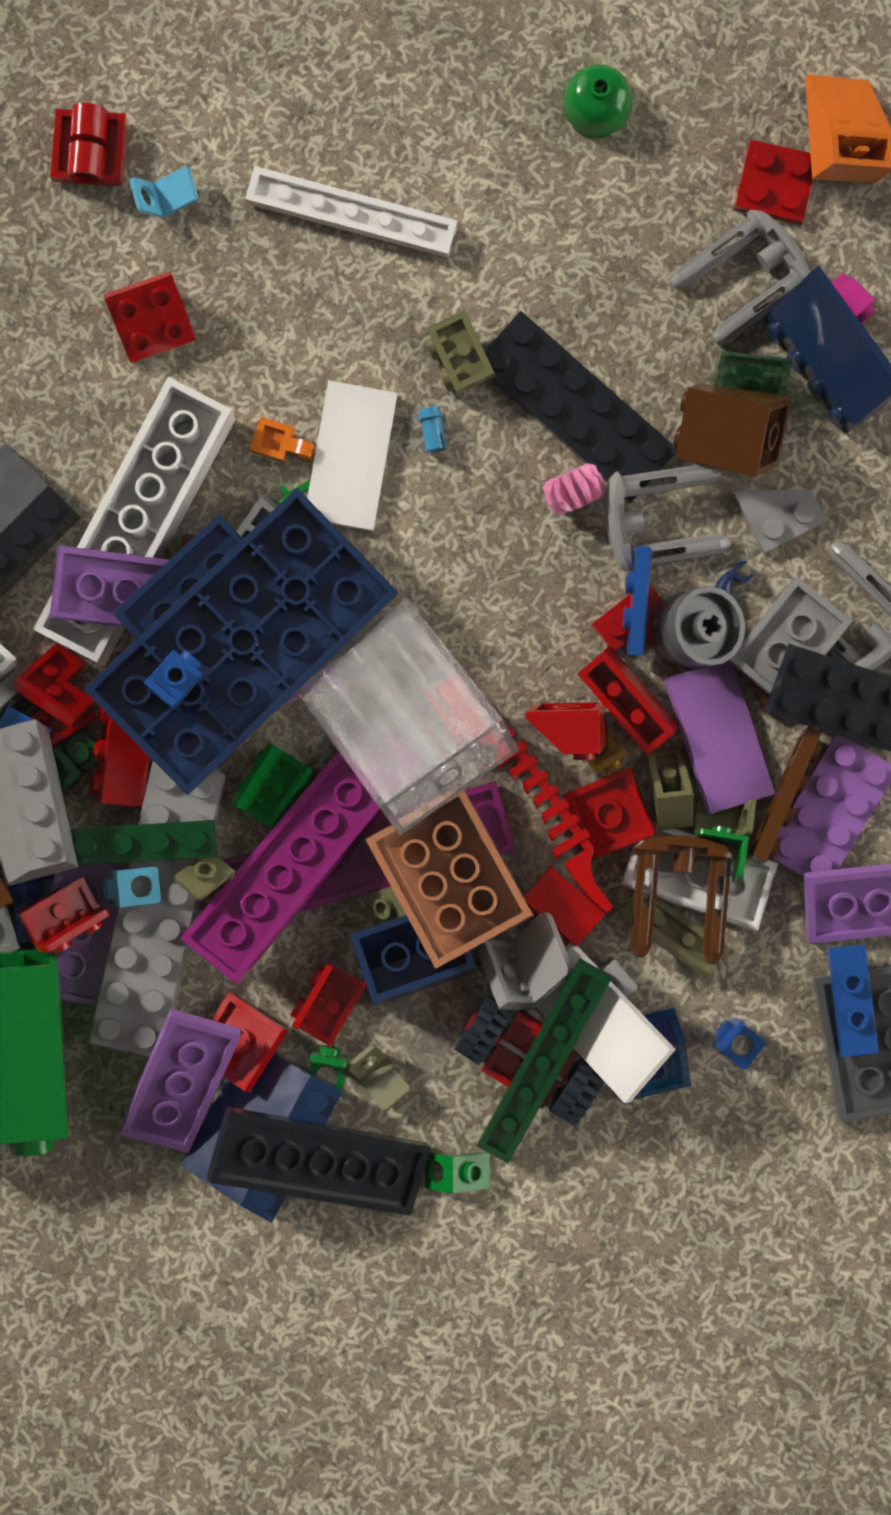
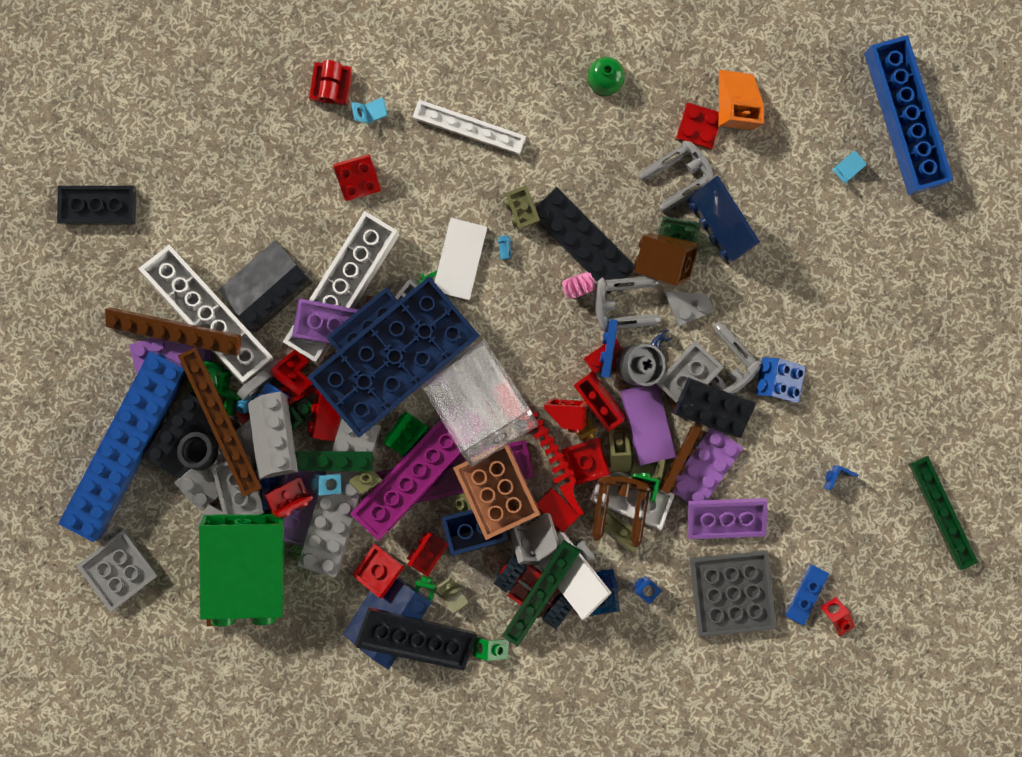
camera: 10 degrees right, 0 degrees up
(174, 692) = (350, 380): blue brick -> none
(179, 1081) = (344, 590): medium lavender plate -> none
(276, 441) = (420, 248): orange plate -> none
(852, 1000) = (709, 571): blue plate -> none
(855, 296) = (736, 191): dark pink brick -> none

